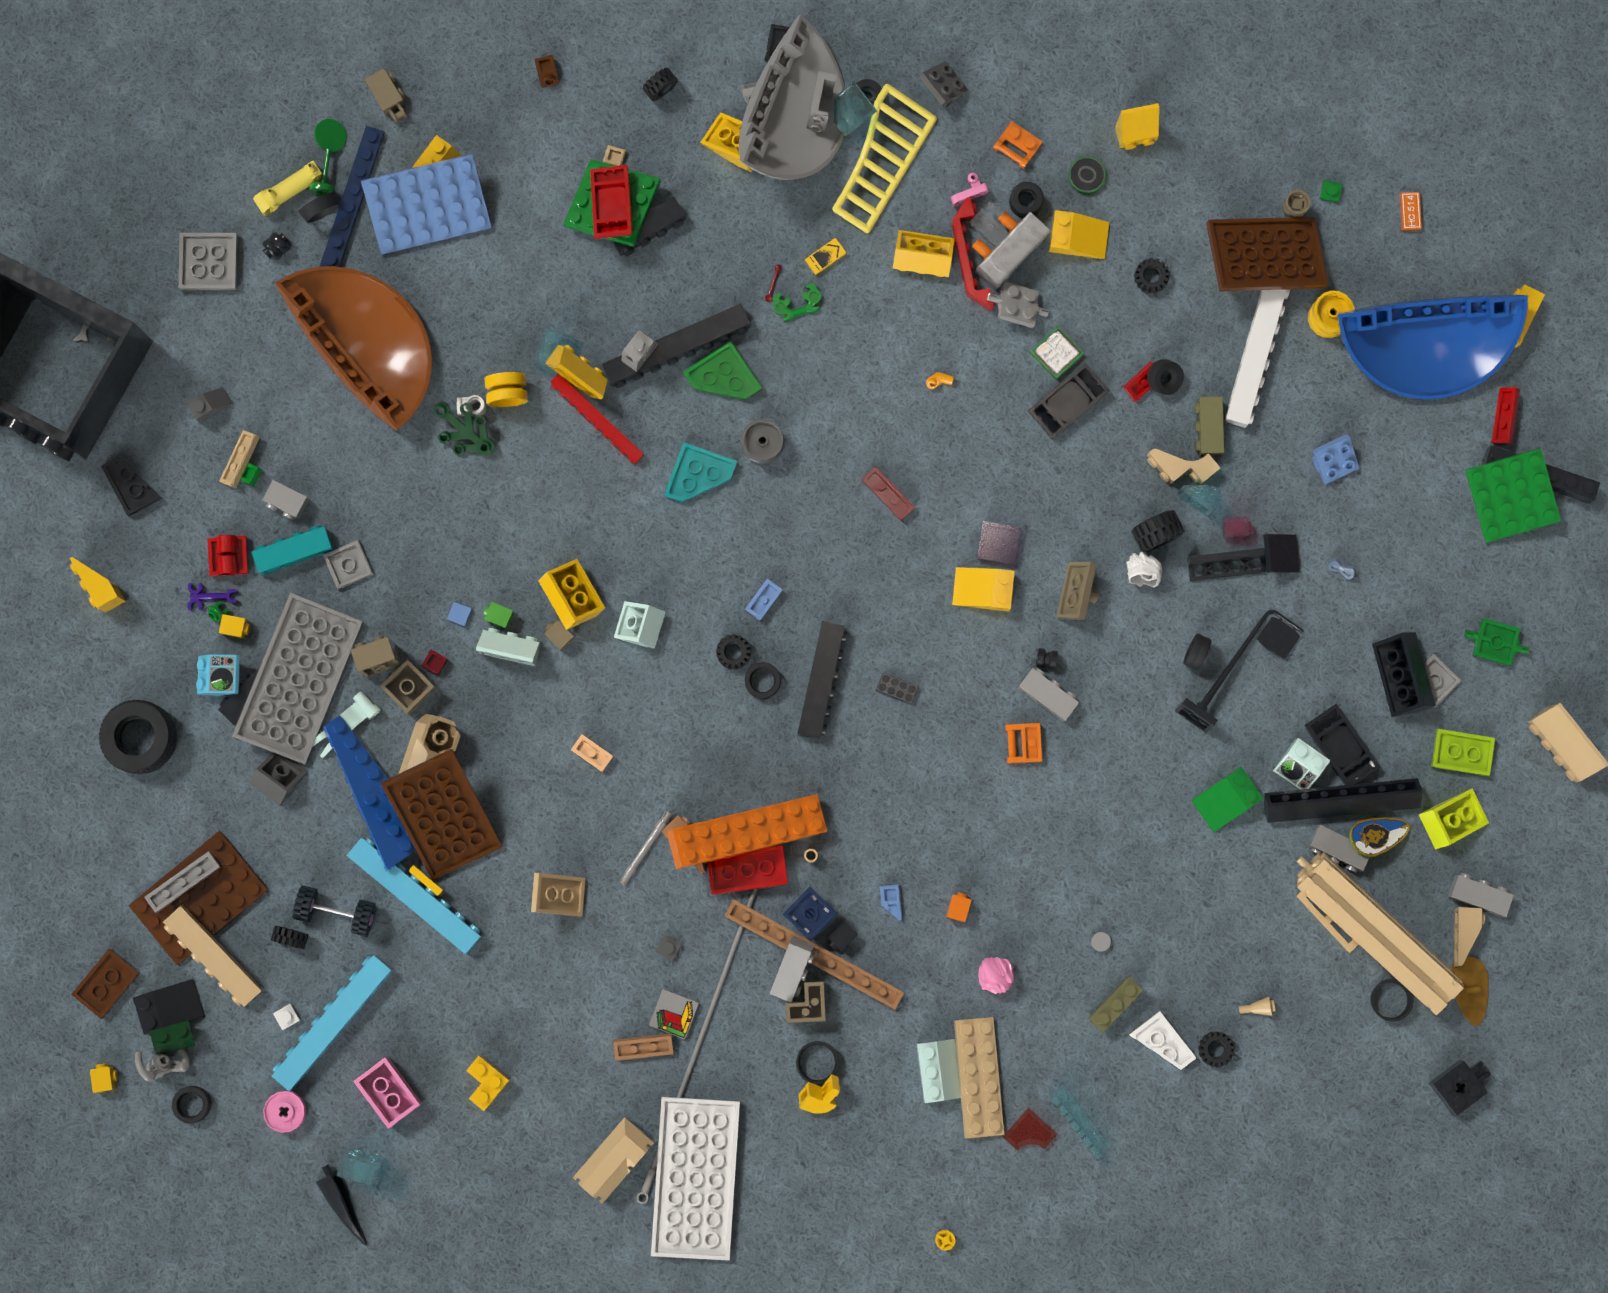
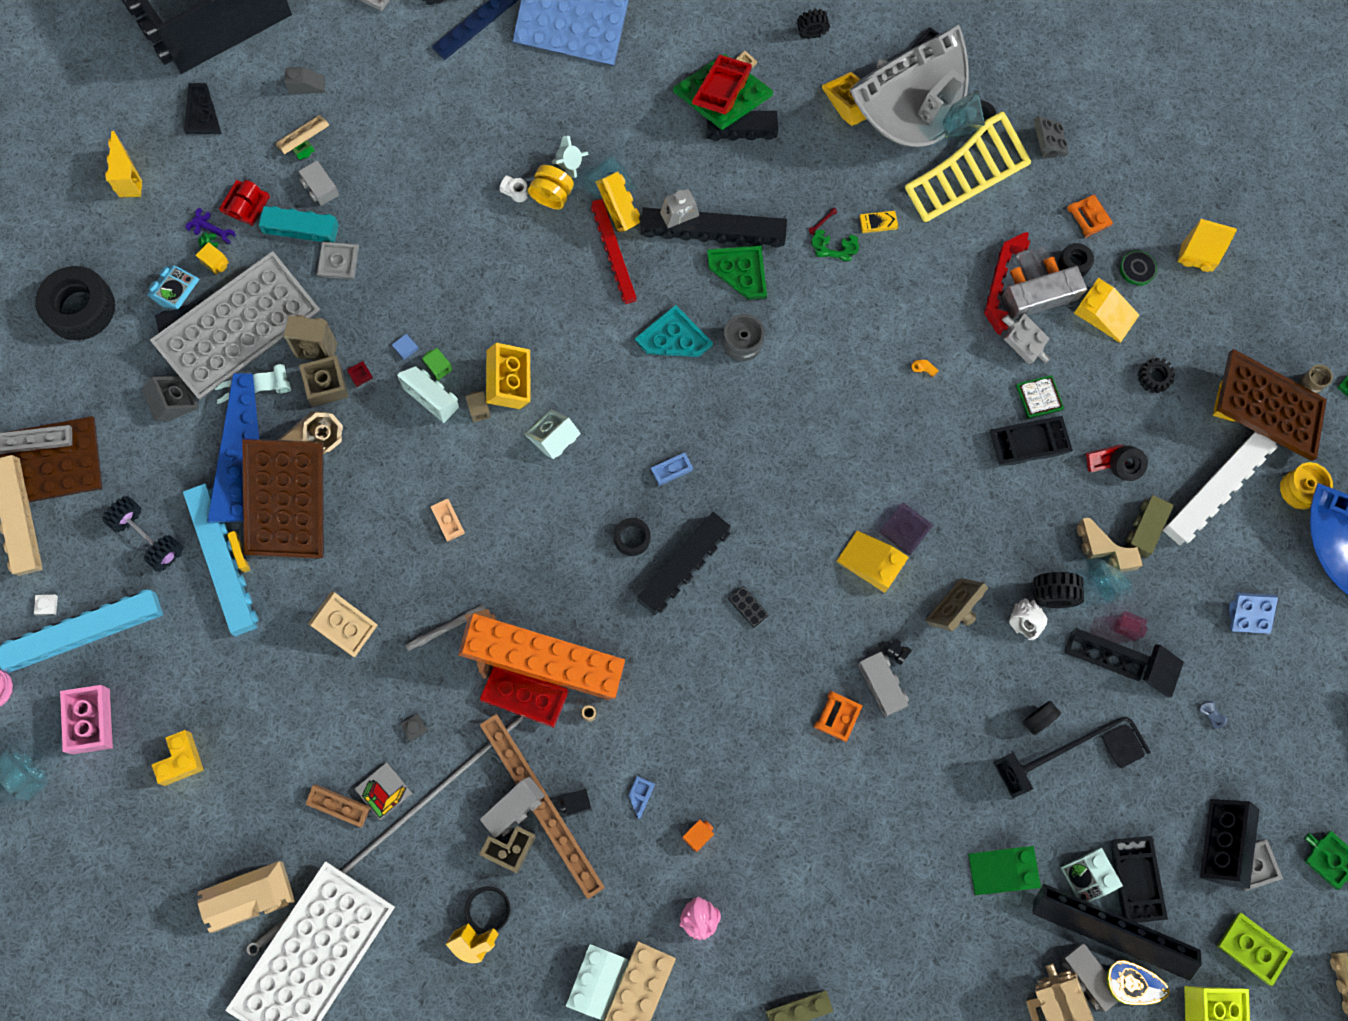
camera: 25 degrees right, 10 degrees down
(289, 937) = (90, 535): black tyre -> none
(364, 336) = (460, 88): dark orange brick -> none
(466, 430) = (499, 203): dark green plant -> none
(504, 348) = (568, 157): none -> light aqua piece
(733, 640) = (620, 488): black tyre -> none
(810, 914) = (557, 764): dark blue piece -> none
(888, 493) = (829, 437): dark red plate -> none
(923, 253) = (963, 259): yellow slope -> none
(976, 190) = (1036, 232): bright pink piece -> none
(1100, 941) = (815, 942): light grey tile -> none

